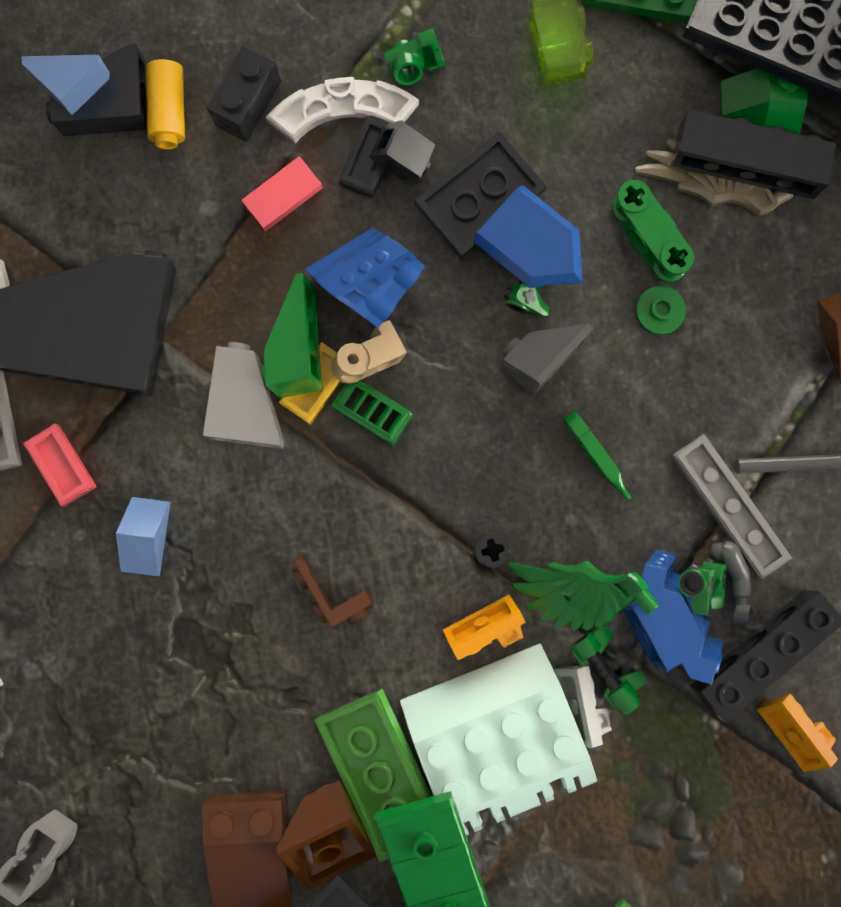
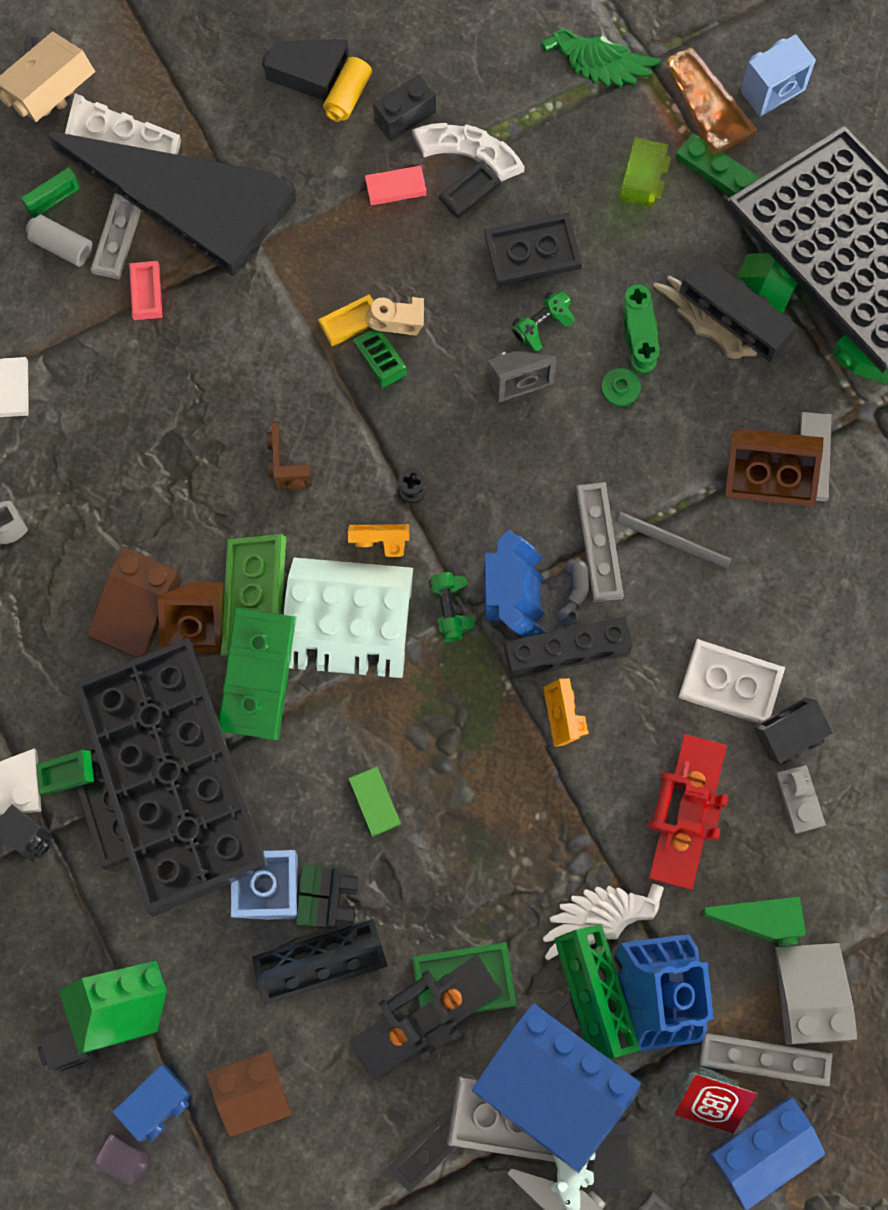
camera: 25 degrees right, 10 degrees down
(68, 77) = (291, 41): medium blue slope -> none
(143, 536) = (176, 363): medium blue slope -> none
(239, 402) = (292, 305): light grey slope -> none
(293, 346) = (349, 284): green slope -> none
(368, 274) = (424, 260): blue slope -> none
(402, 151) = (493, 194): brick -> none
(411, 57) = (533, 136): green plate -> none
(532, 241) = (549, 292): blue tile -> none
(580, 695) = (420, 609): light grey hinge -> none
(581, 593) = (456, 535): green animal -> none
(595, 452) = (521, 458): green piece -> none
(704, 585) = (556, 576): green piece -> none

